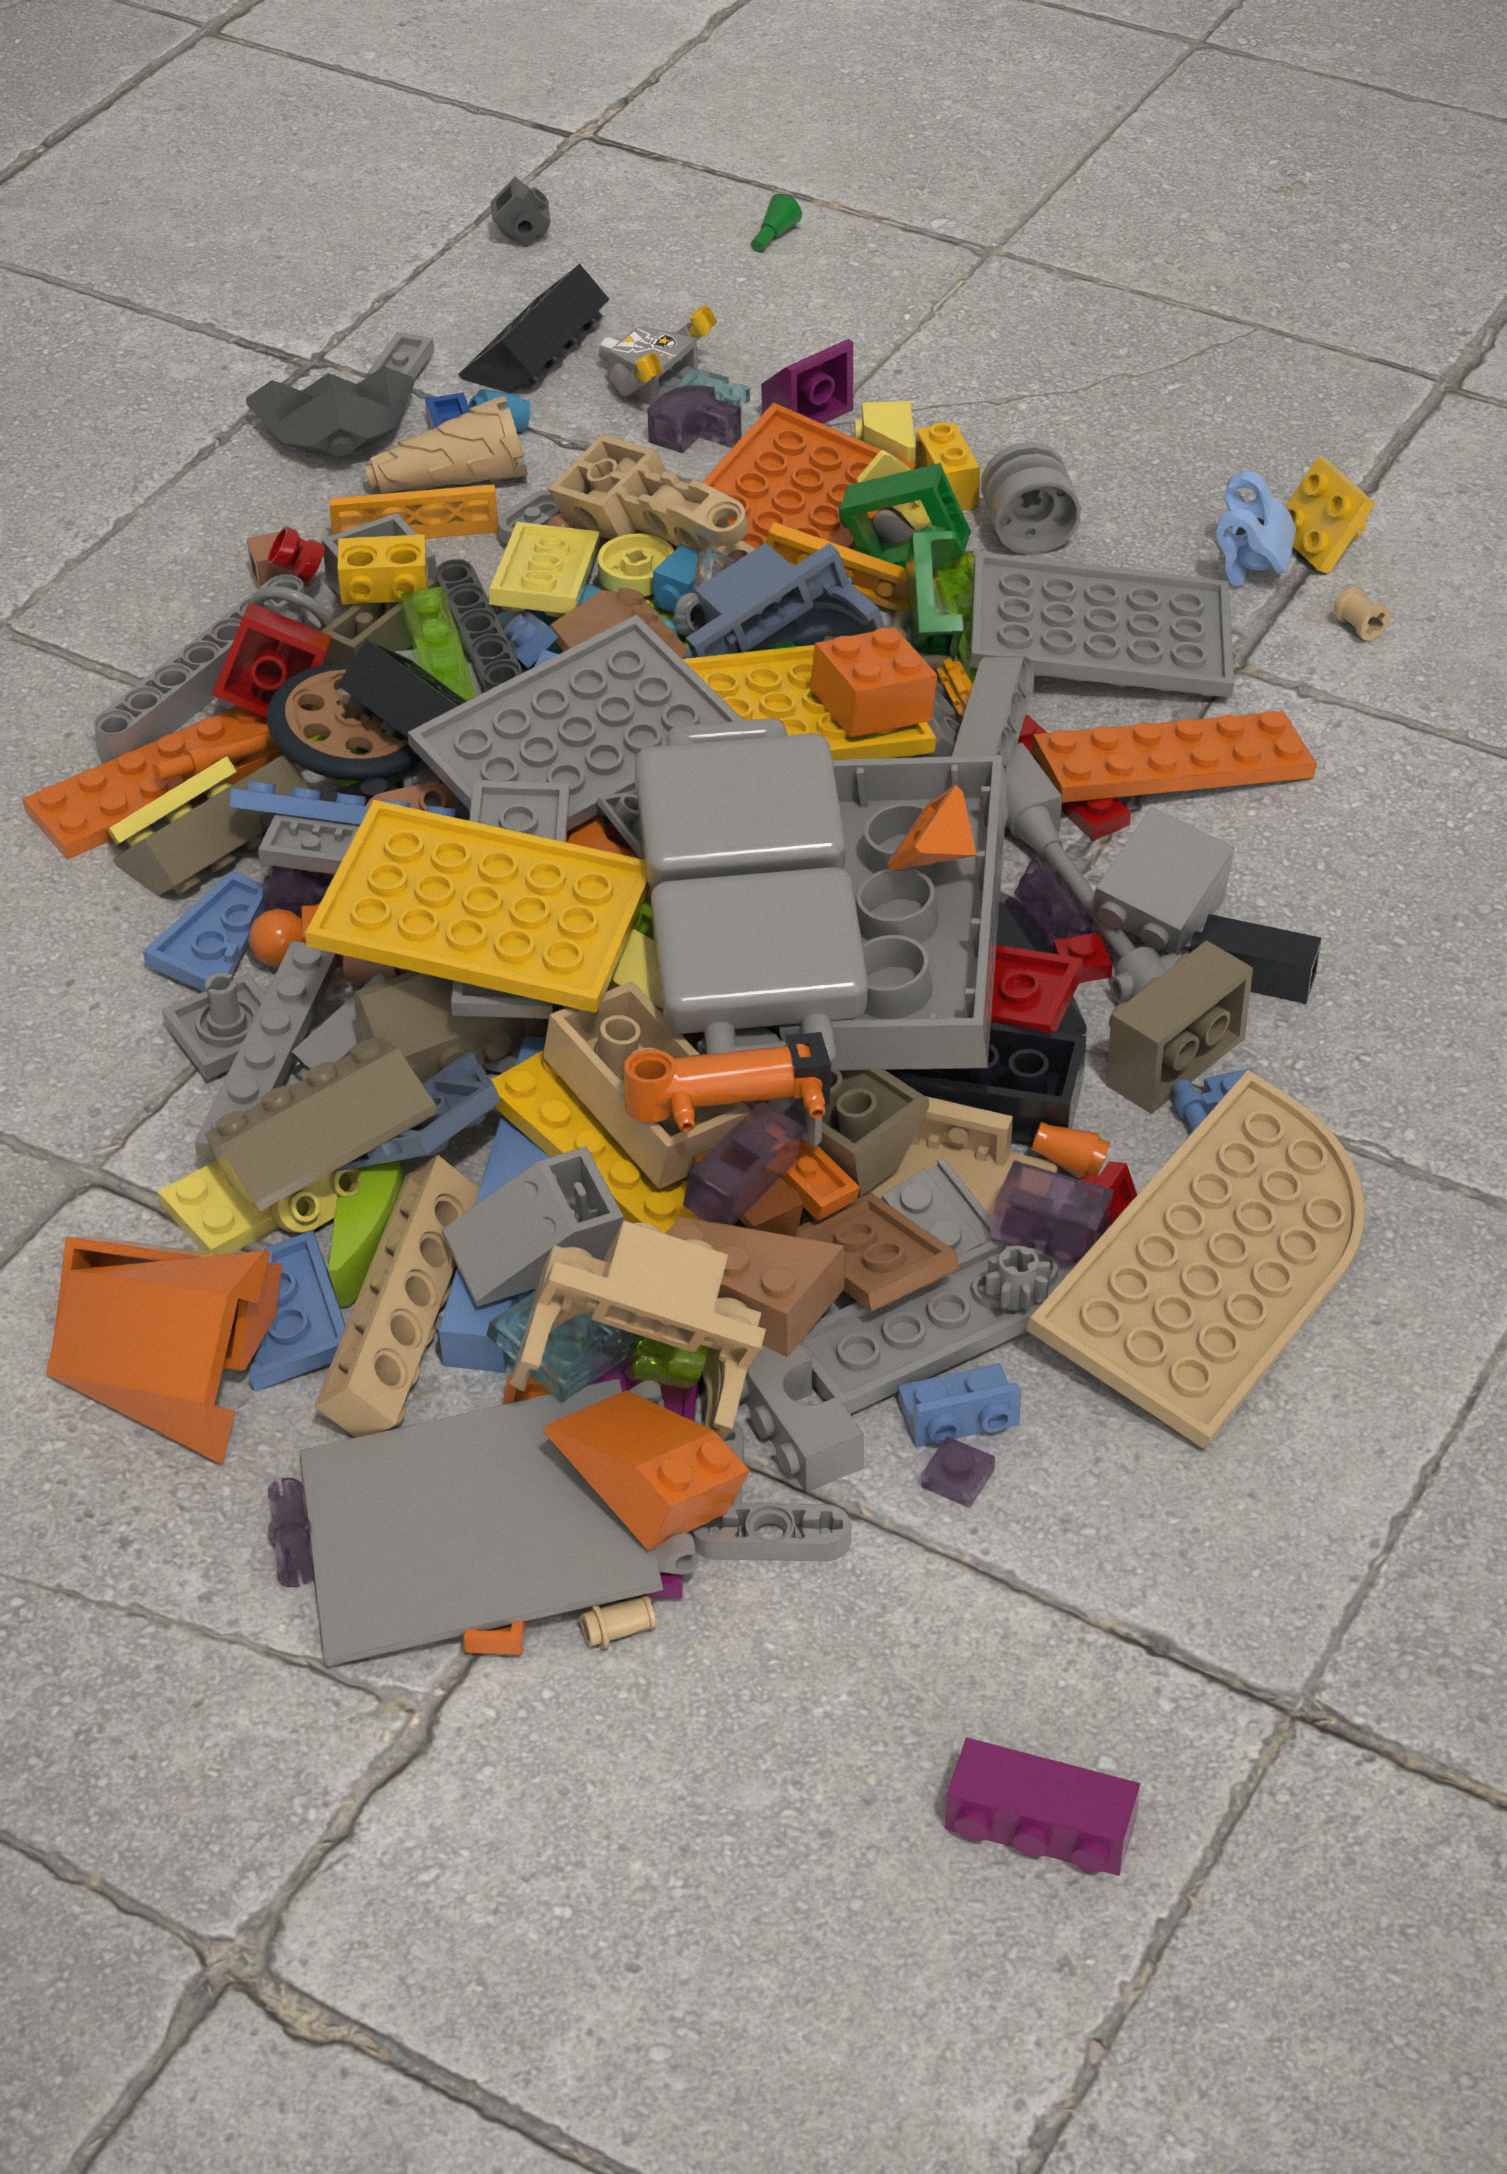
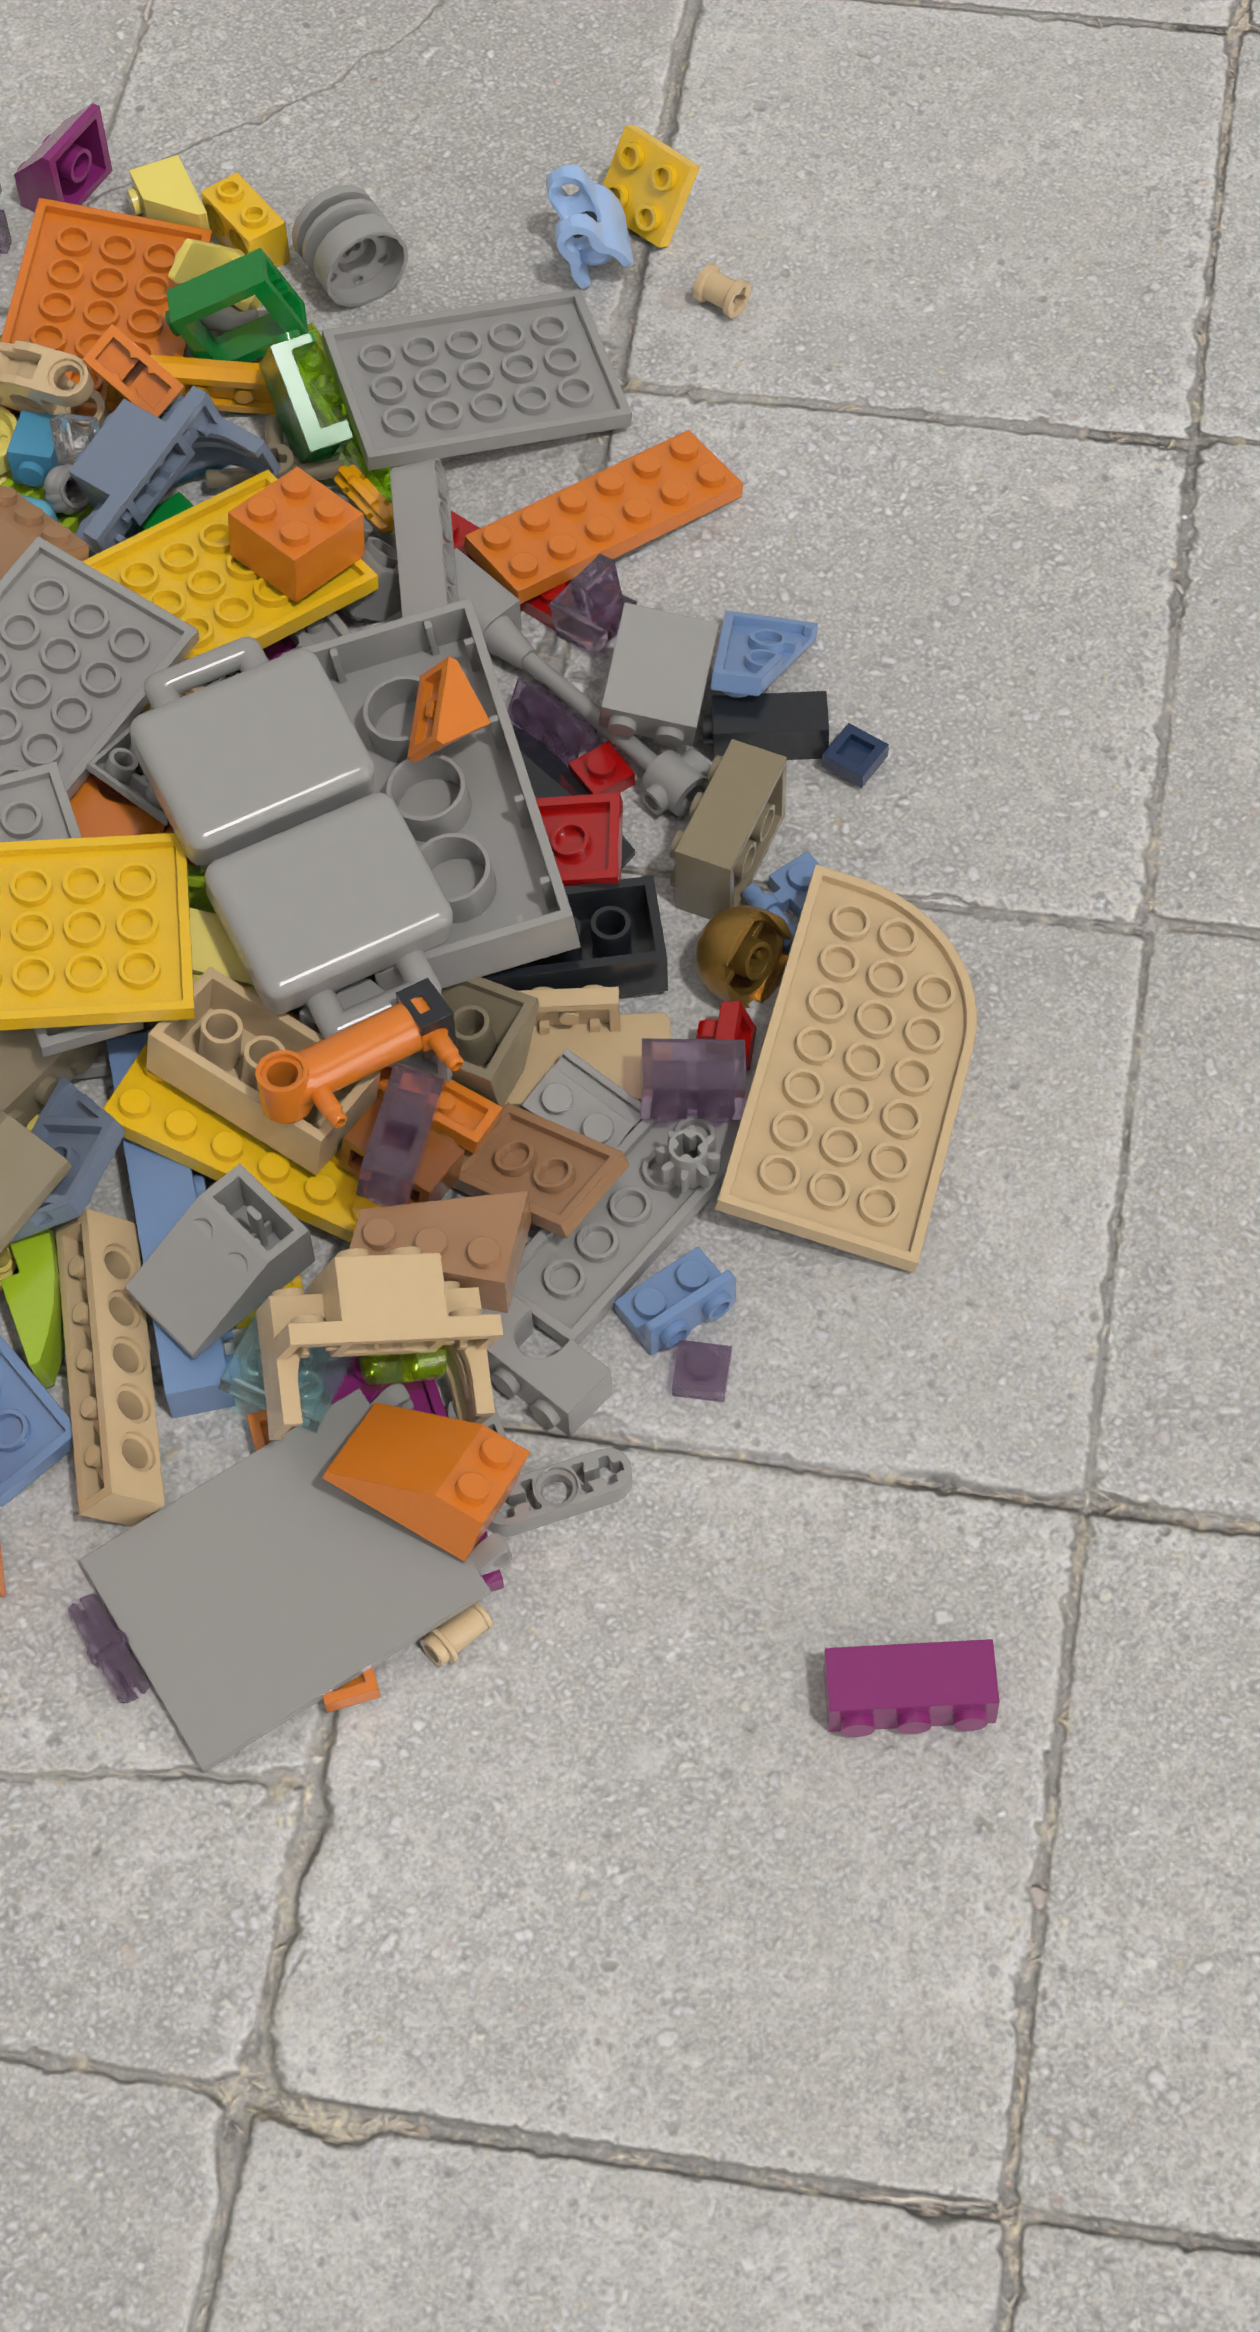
camera: 20 degrees left, 15 degrees up
(782, 524) = (133, 372): none -> orange brick
(1071, 1149) = (677, 995): orange cone -> none
(1119, 814) = (591, 606): none -> clear purple brick
(1147, 1126) = (742, 954): none -> pearl gold cylinder
(1269, 891) = (757, 651): none -> medium blue wing
(1331, 1003) = (855, 755): none -> dark blue plate

